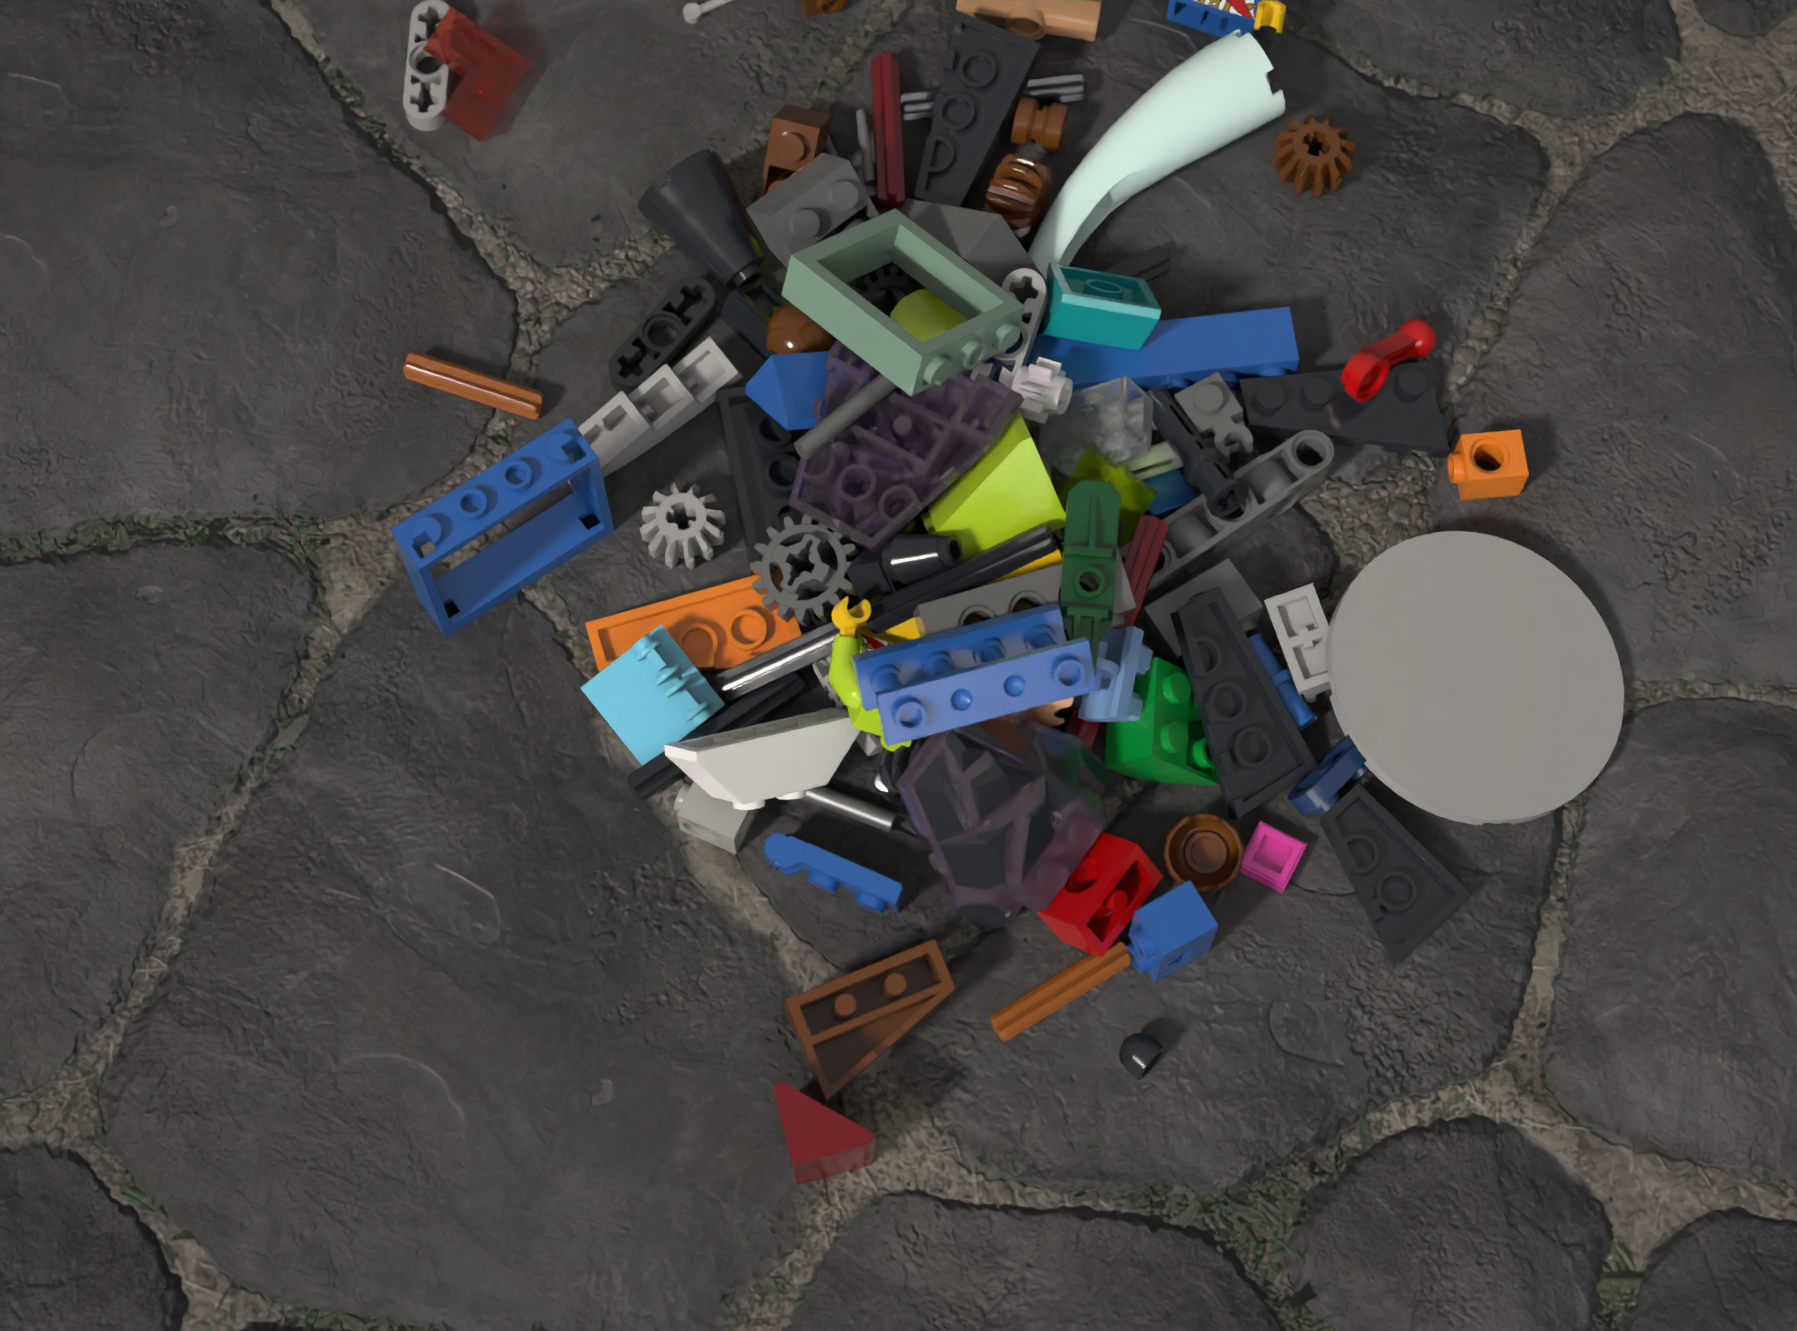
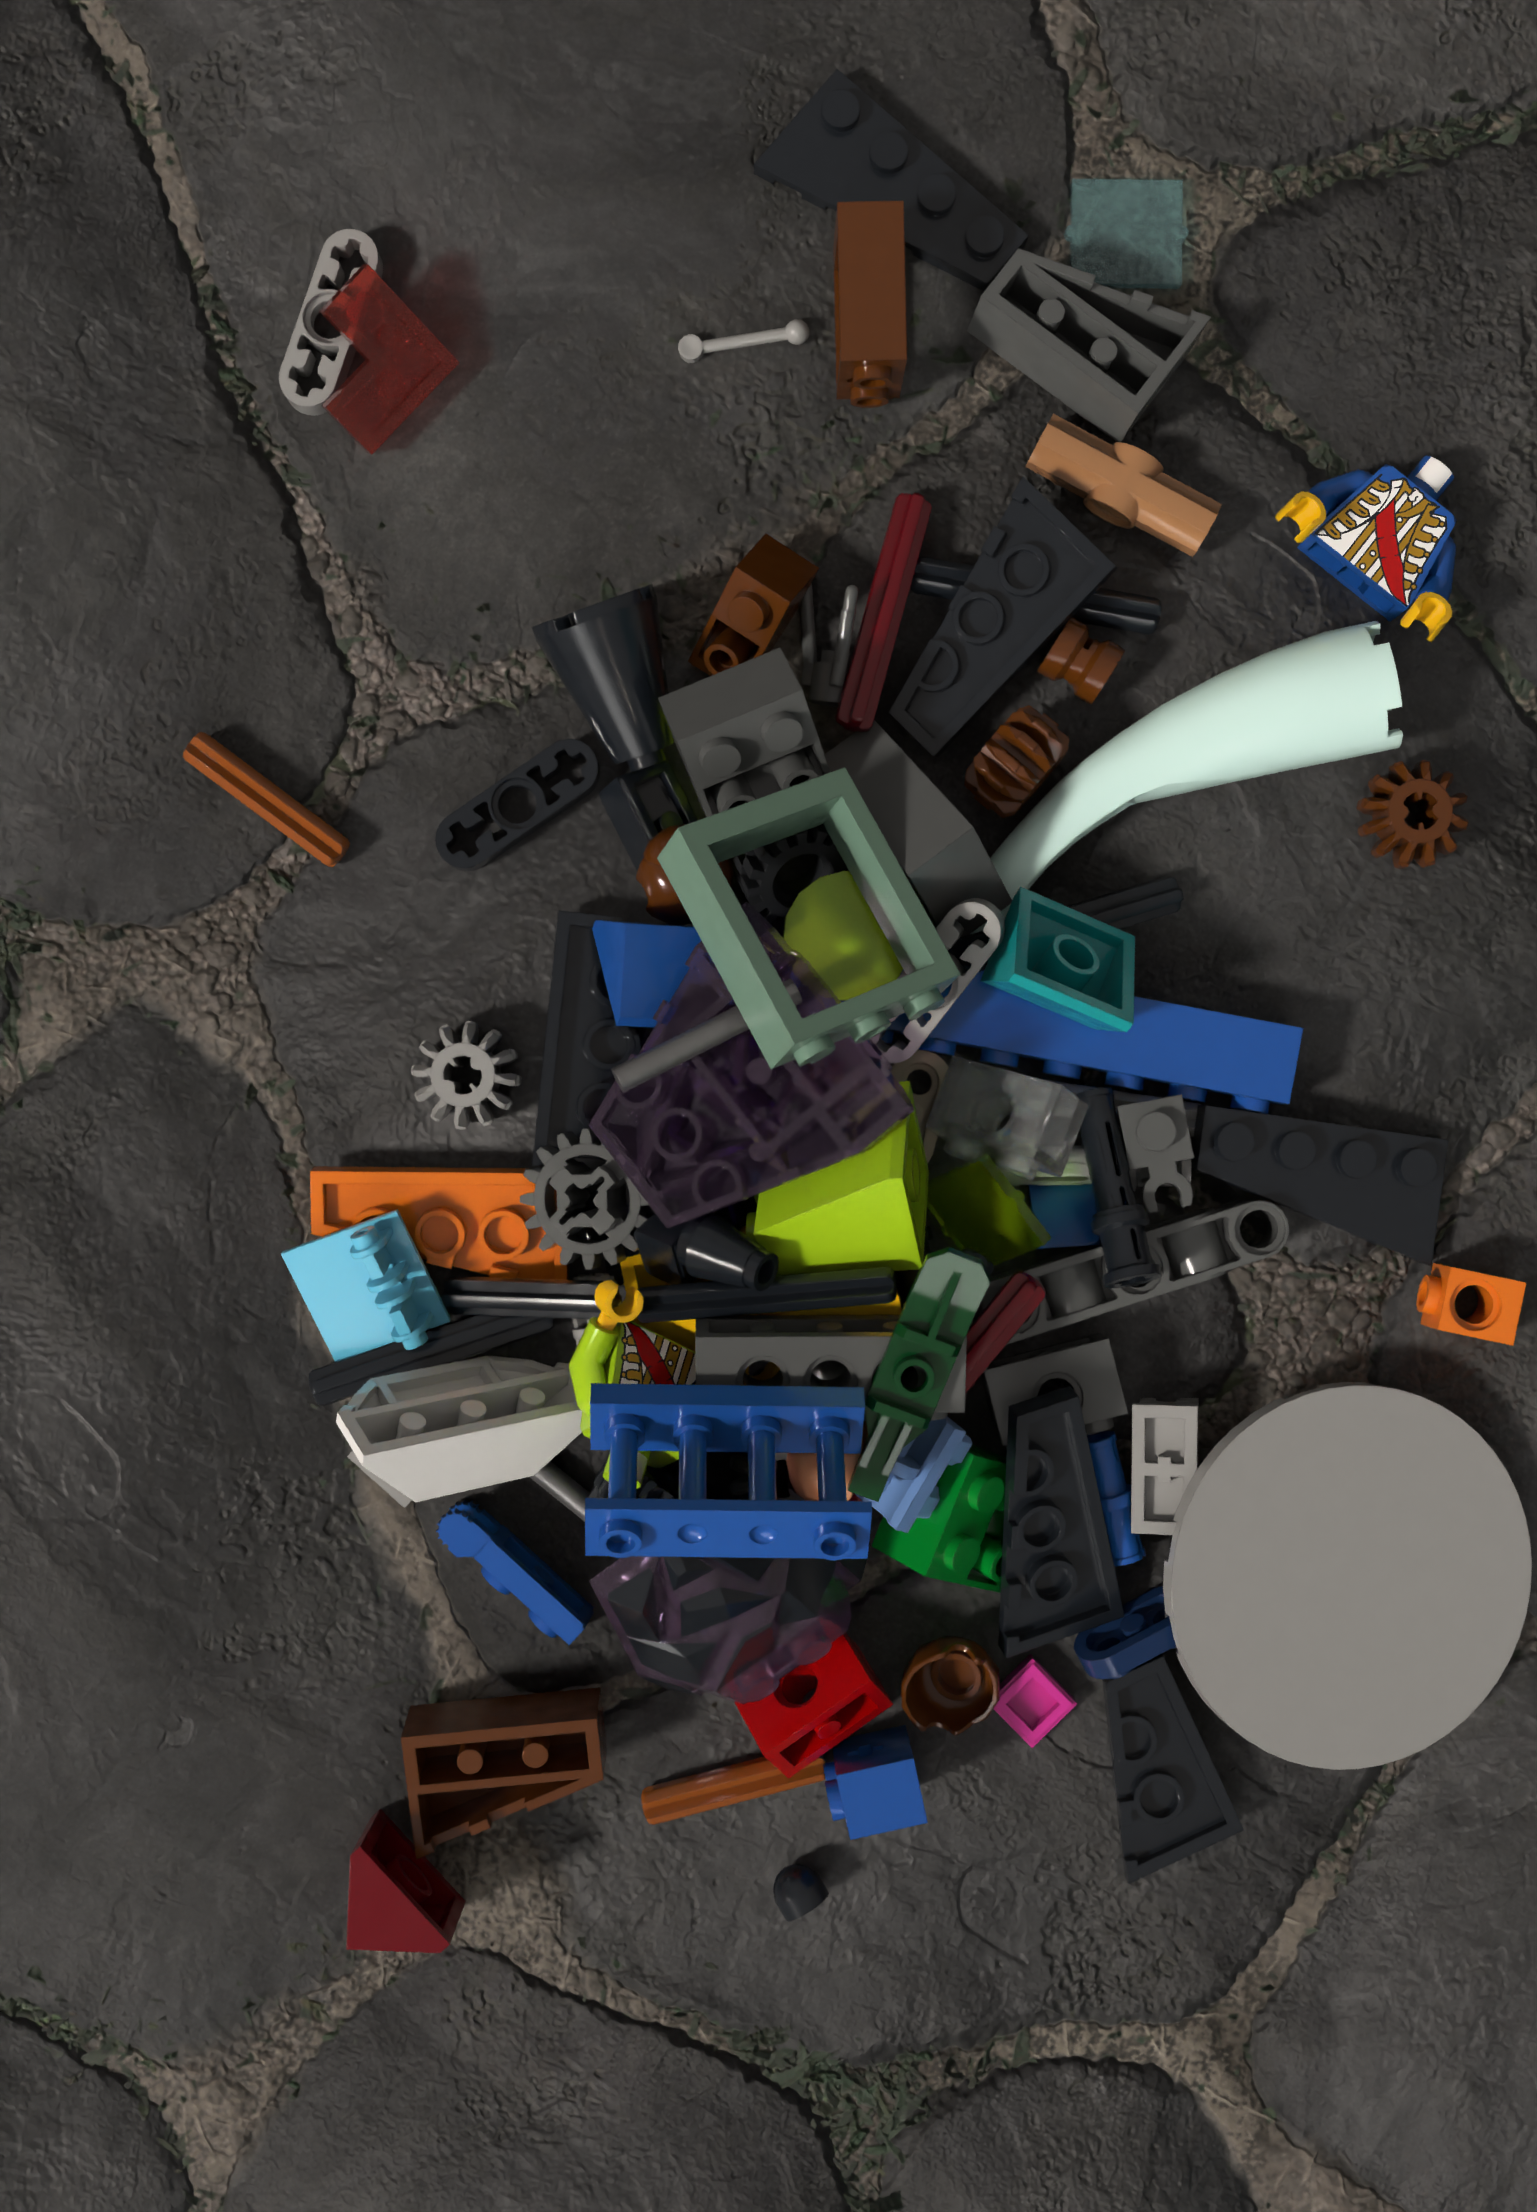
camera: 15 degrees right, 20 degrees up
(488, 501) = (226, 1047): blue window -> none
(658, 406) = (465, 909): light grey slope -> none
(1043, 389) = (952, 1061): white gear -> none
(1370, 367) = (1443, 1105): red piece -> none

